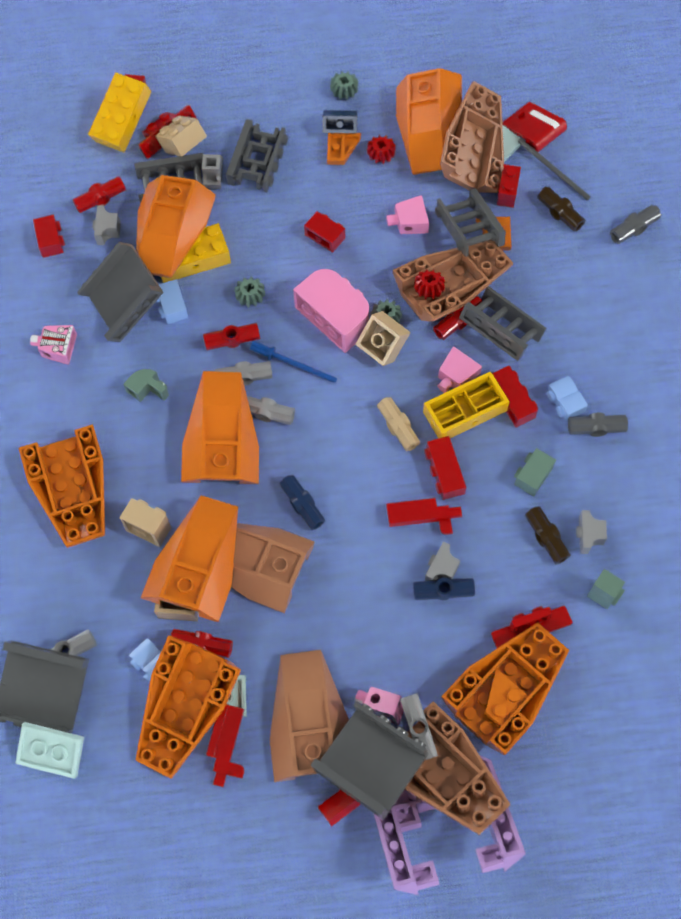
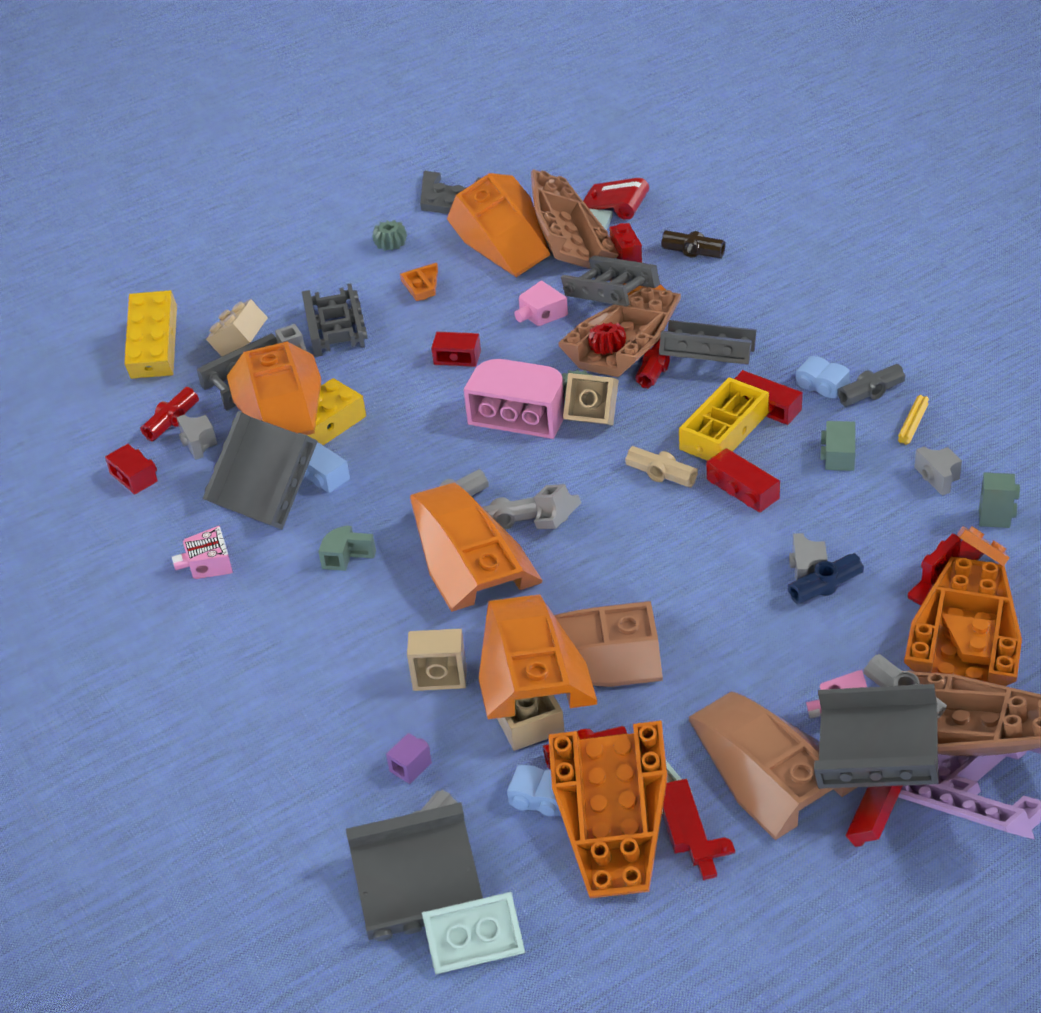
camera: 25 degrees left, 25 degrees down
(69, 484) = (317, 665): orange wedge -> none
(89, 590) = (409, 758): none -> medium lavender brick
(151, 145) = (198, 346): red bracket -> none
(221, 338) = (415, 468): red piece -> none
(249, 291) = (408, 425): sand green gear -> none
(270, 352) = (468, 466): blue piece -> none
(301, 425) = (554, 506): none -> light grey brick
(302, 502) = (606, 573): dark blue piece -> none
(340, 121) = (407, 260): dark blue brick -> none
(381, 149) = (468, 267): red gear -> none
(408, 59) = (437, 196): none -> dark grey wing
(422, 512) = (748, 526): red piece -> none
(457, 370) = (688, 396): bright pink torso -> none
(547, 535) = (897, 489): dark brown piece -> none
(554, 169) = (661, 220): dark grey axle -> none
(564, 628) = (975, 538): none -> orange wing
(606, 473) = (913, 419): none -> yellow axle
(635, 224) = (777, 229): dark grey piece -> none

